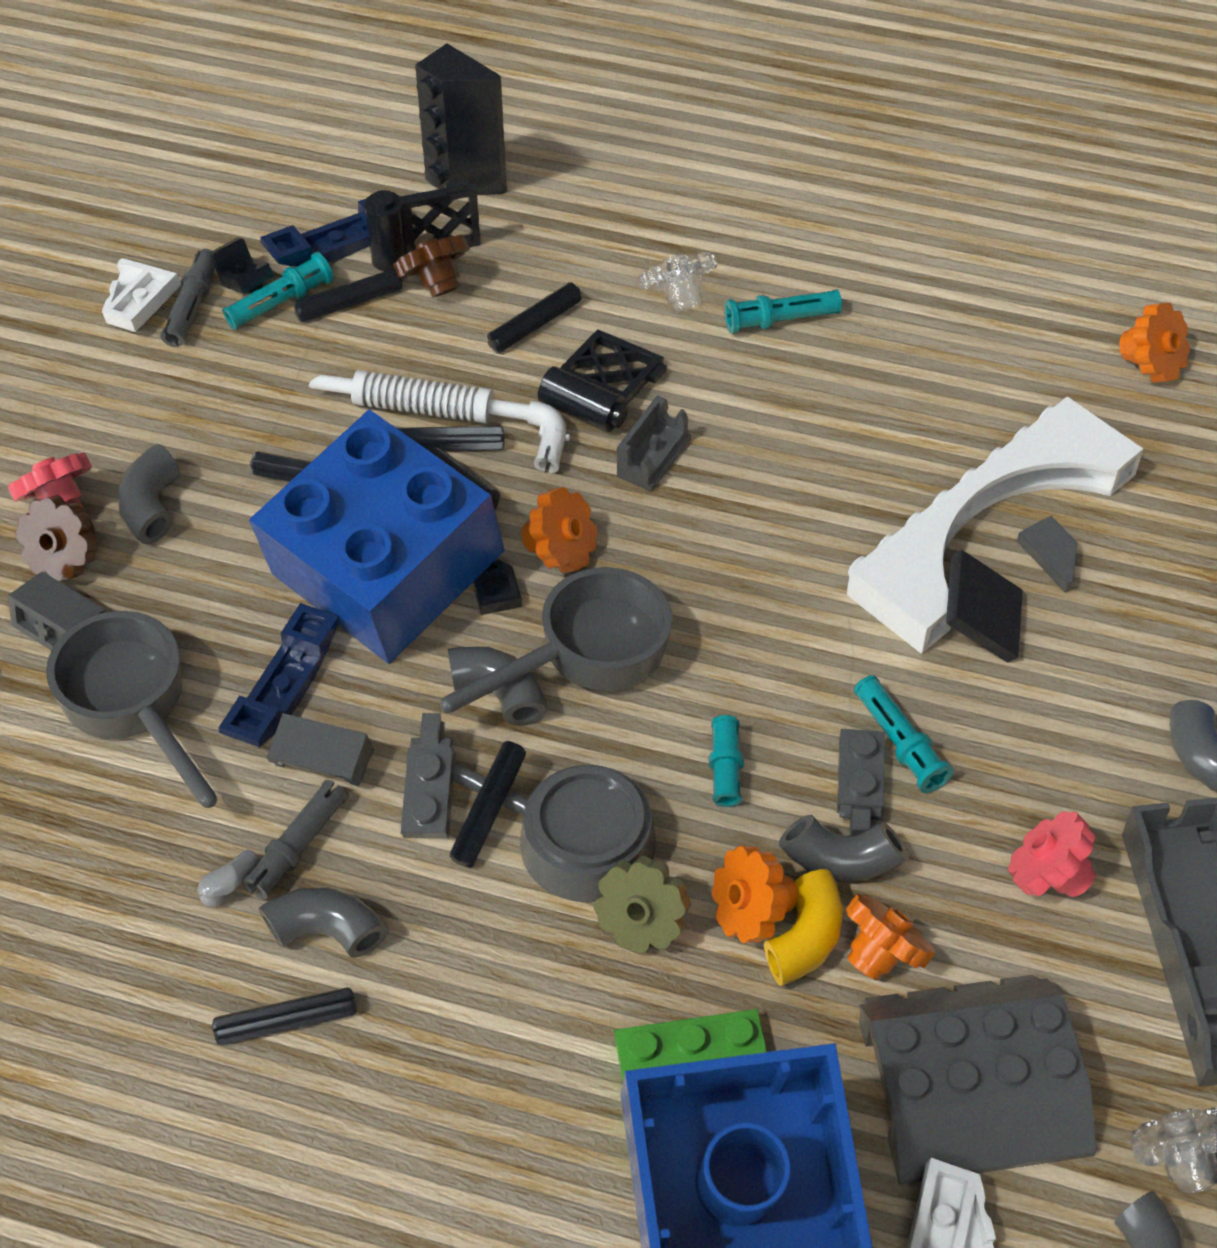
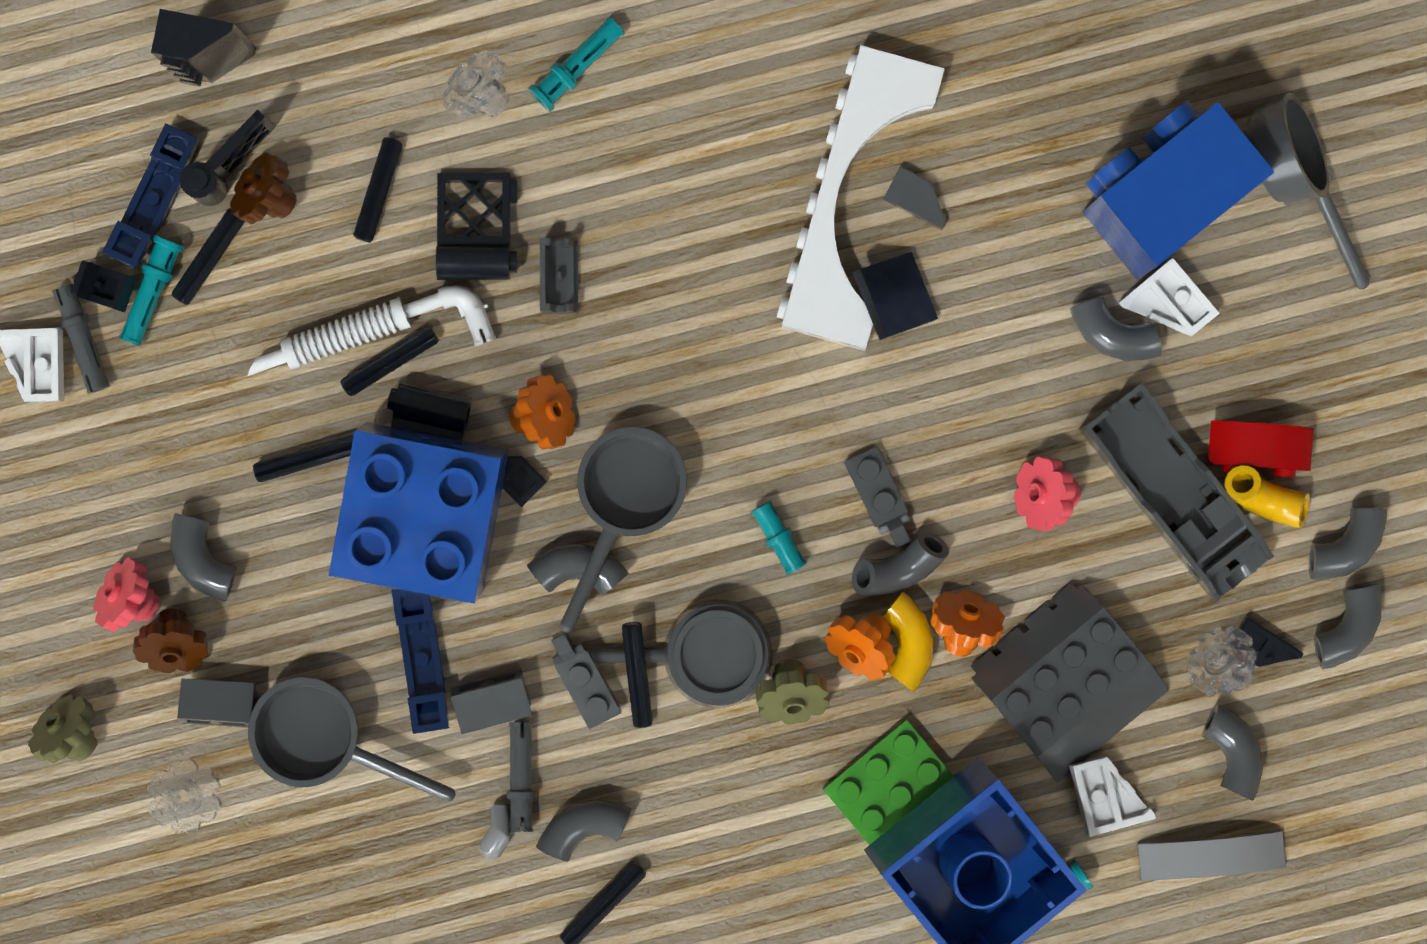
camera: 30 degrees left, 35 degrees up
(912, 747) = (903, 448): teal pin -> none

